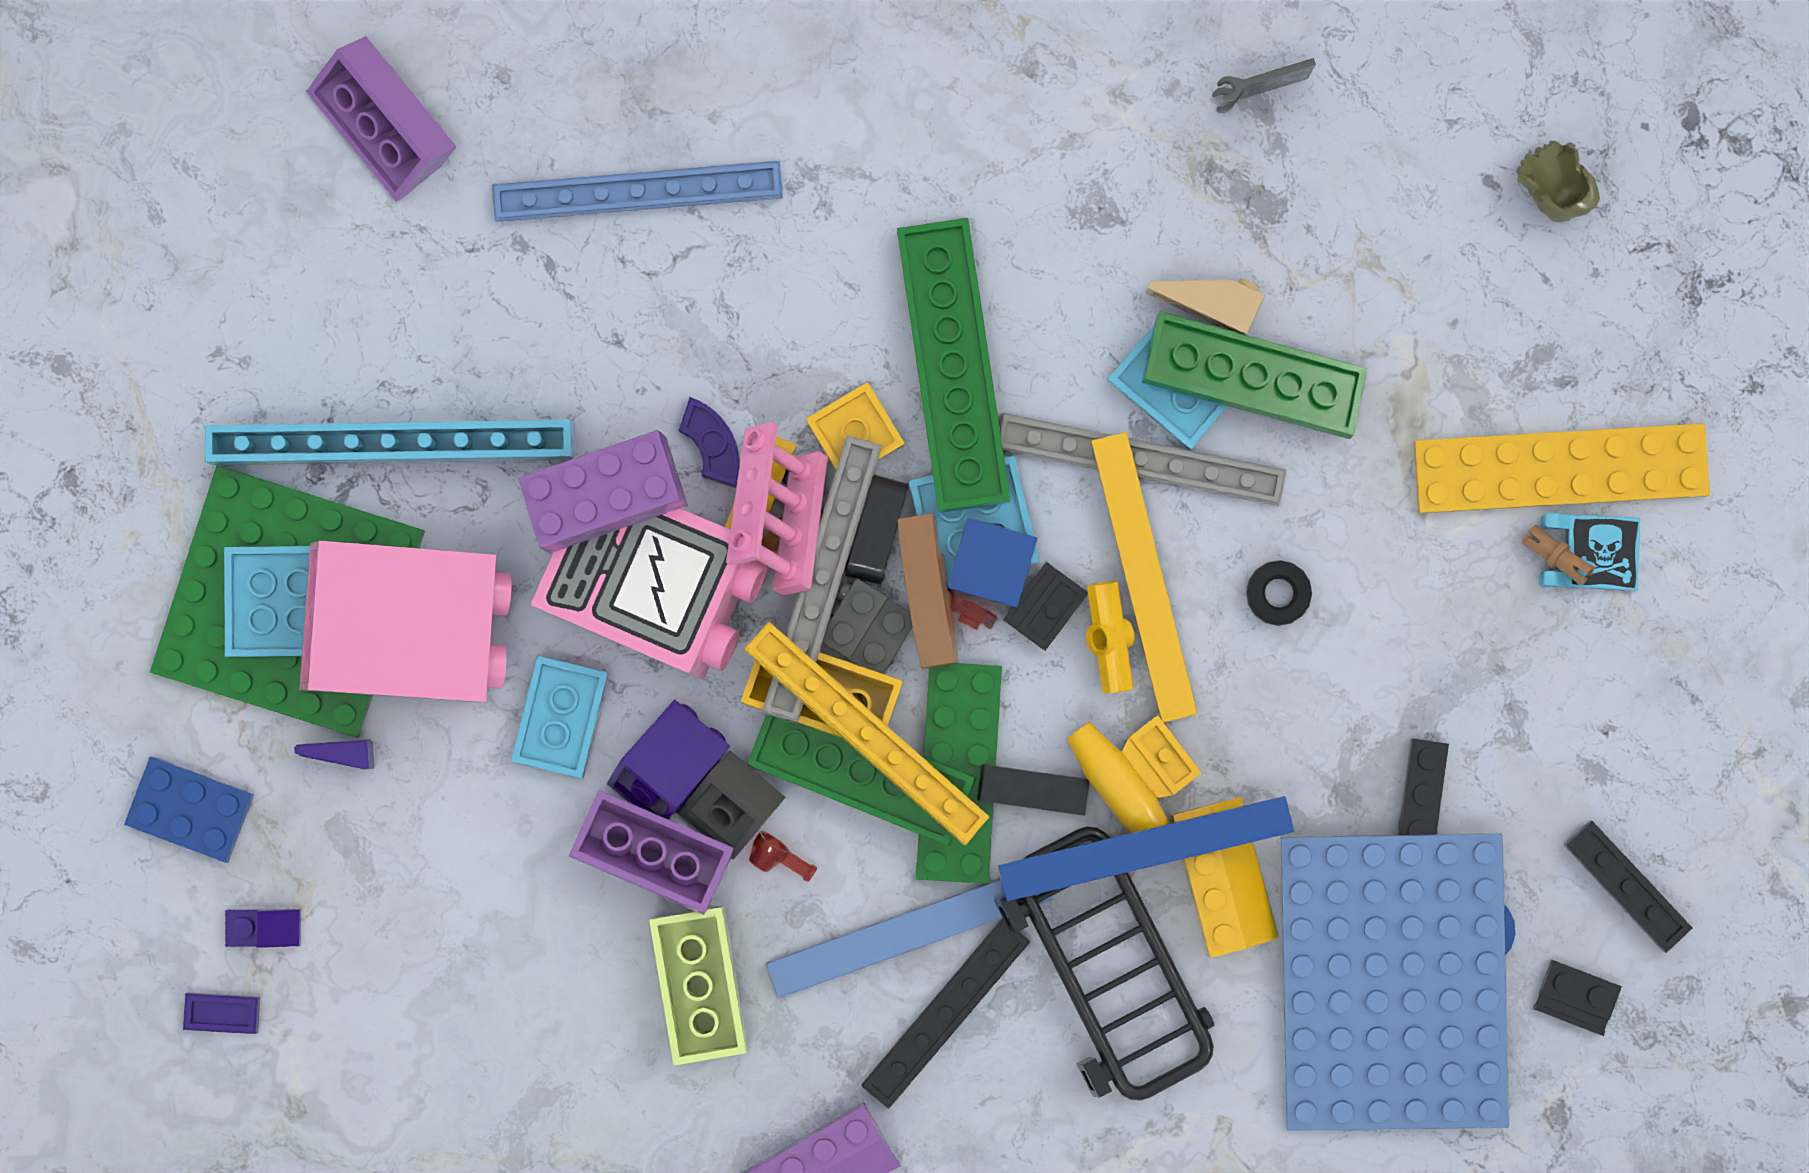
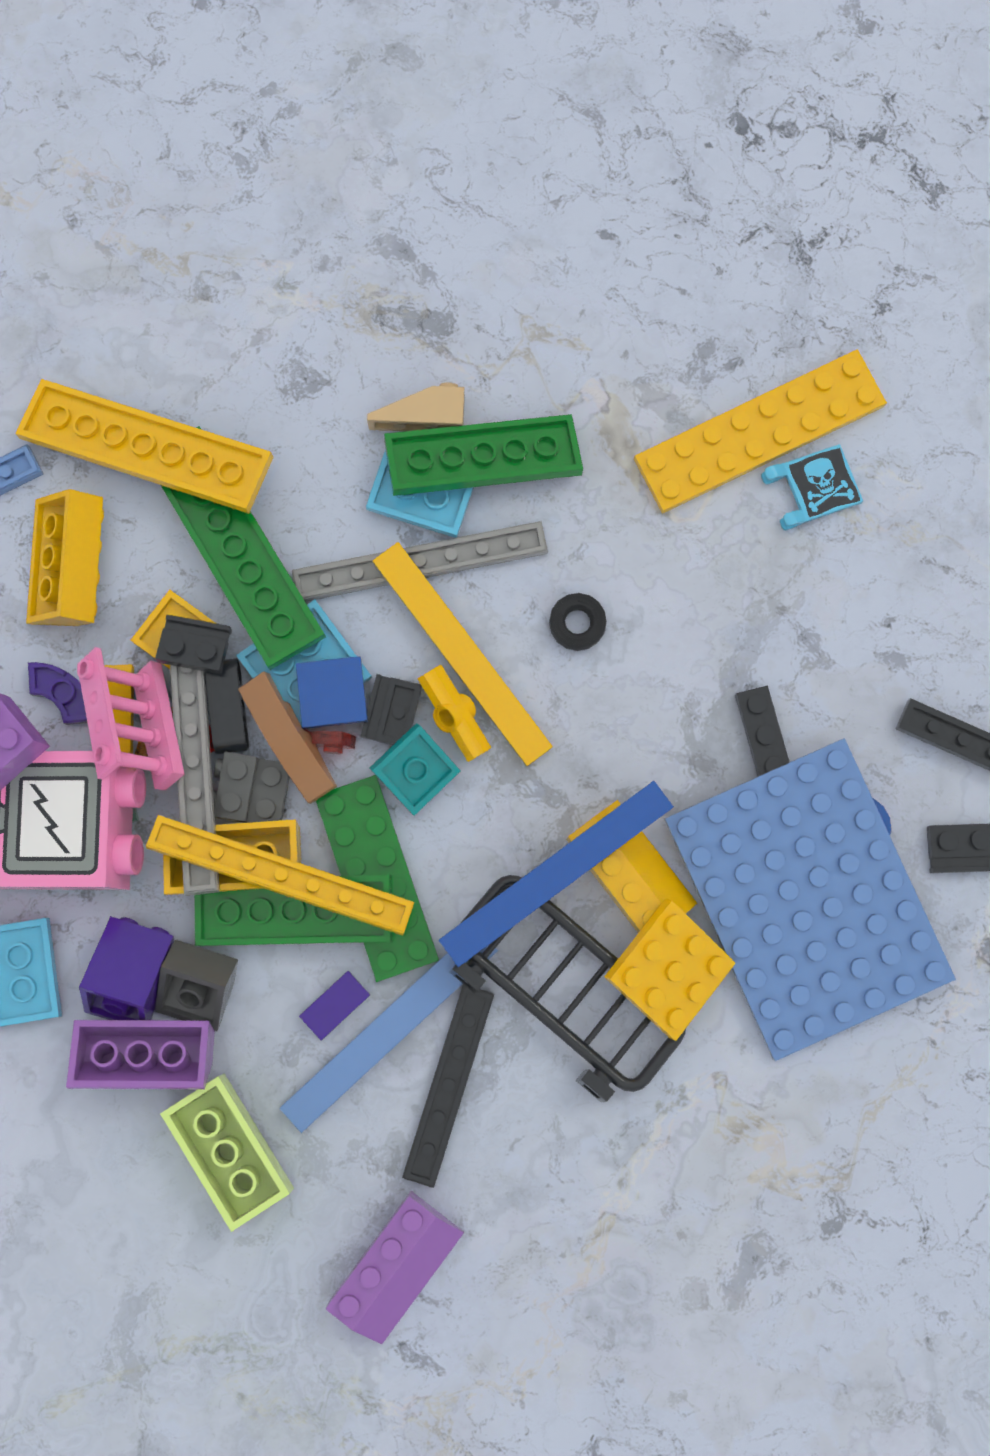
camera: 30 degrees left, 5 degrees down
(769, 852) = (244, 1011): clear red bar -> none
(770, 303) = (65, 559): none -> yellow slope
(863, 884) = (334, 1005): none -> dark purple tile
(871, 454) = (193, 644): none -> black plate
(903, 218) = (145, 445): none -> yellow plate
(1033, 789) = (443, 865): black tile -> none
(1045, 678) = (415, 769): none -> teal plate
(1132, 779) = (524, 819): yellow plate -> none
(1220, 993) = (670, 969): none -> yellow plate
(1261, 83) = (392, 223): dark grey flag -> none
(1558, 182) = (660, 209): olive hair -> none
(1558, 555) = (788, 498): medium nougat pin -> none

